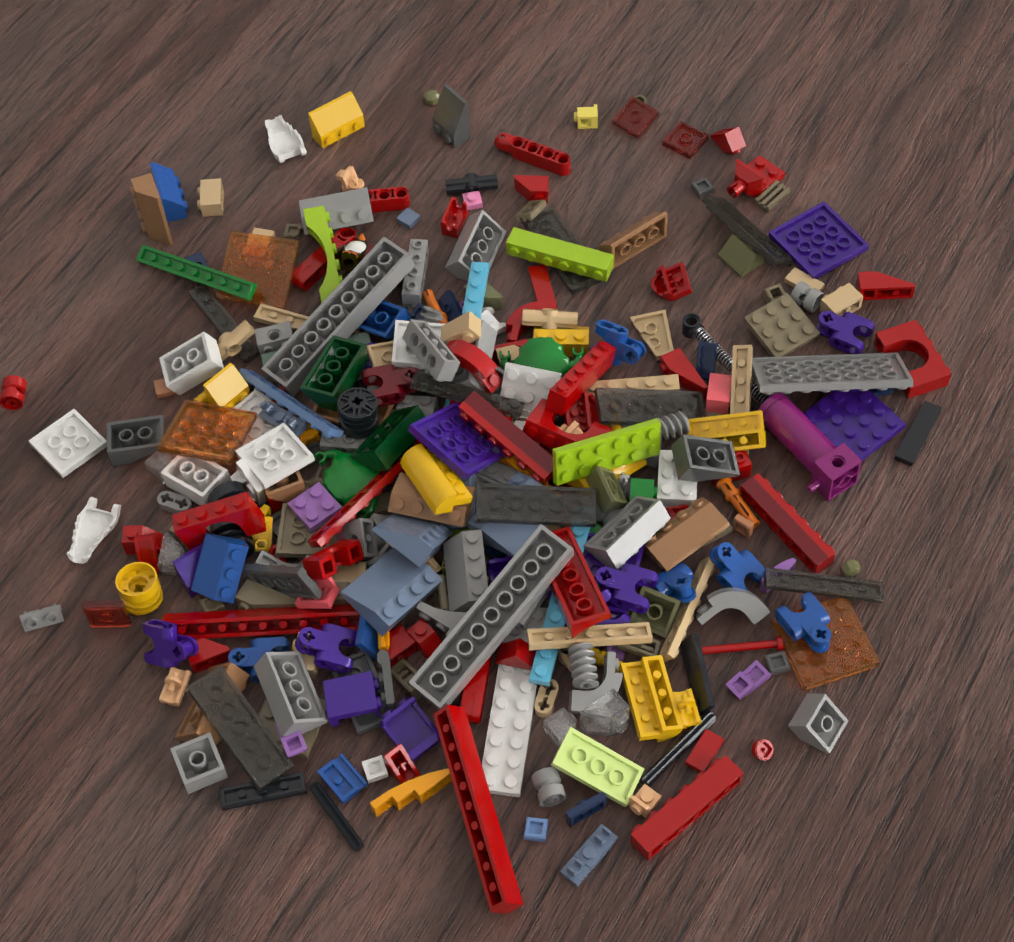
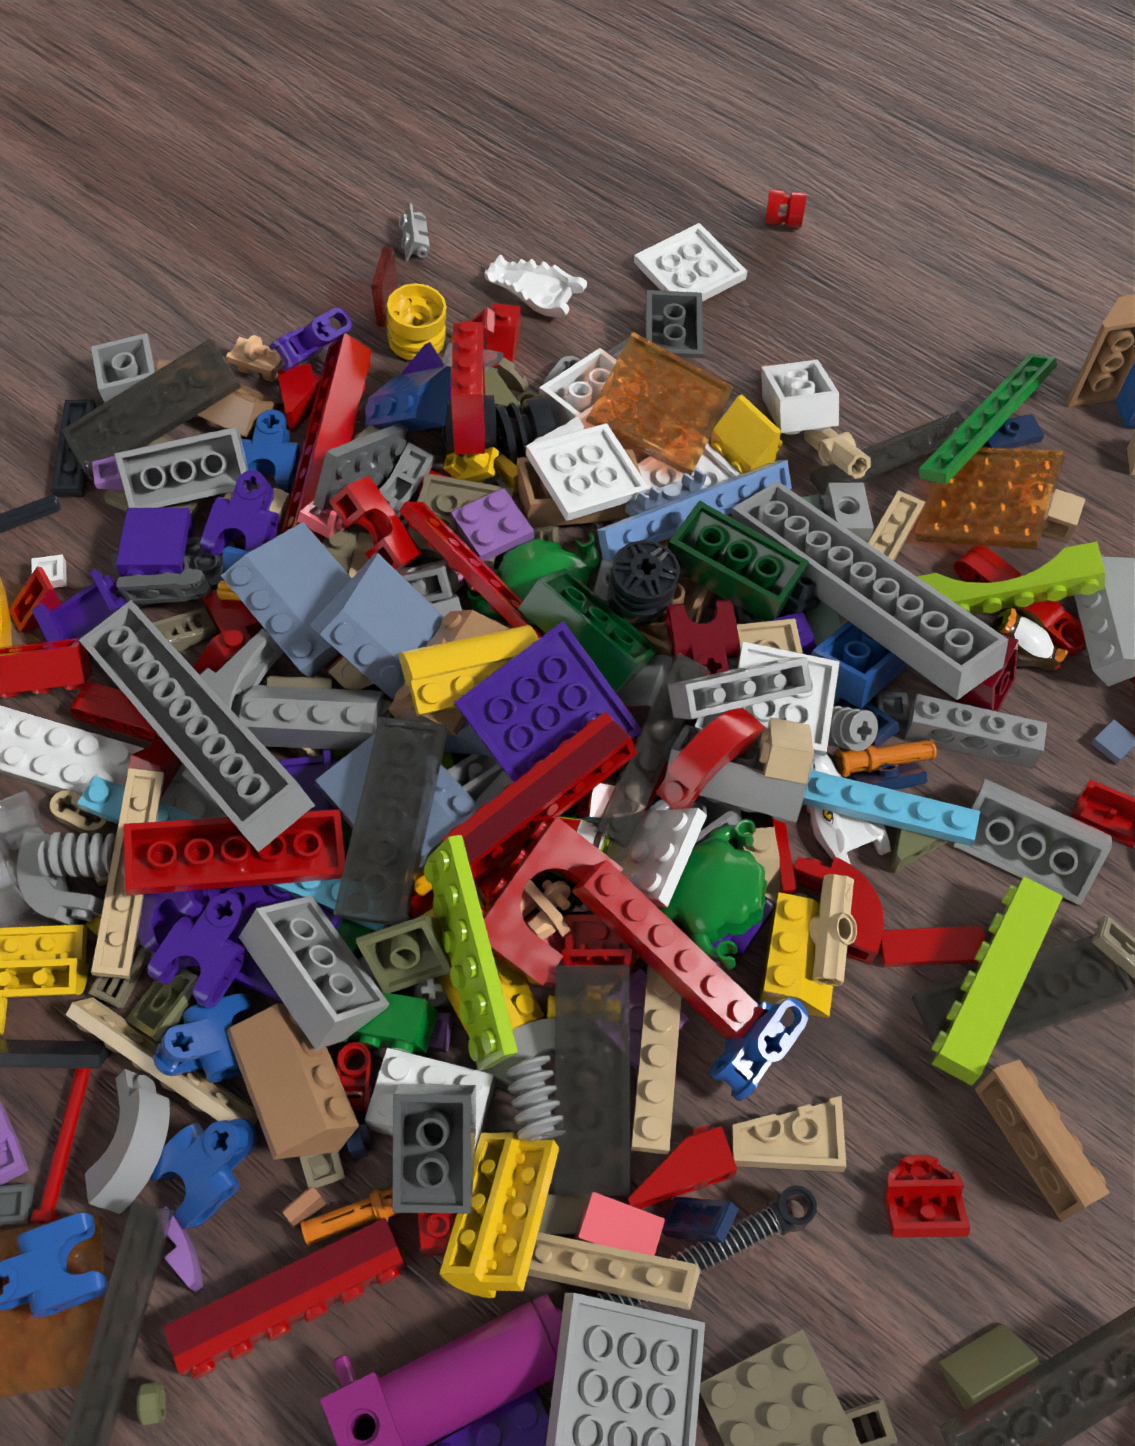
camera: 95 degrees right, 5 degrees up
(342, 778) = (51, 532): blue plate -> none

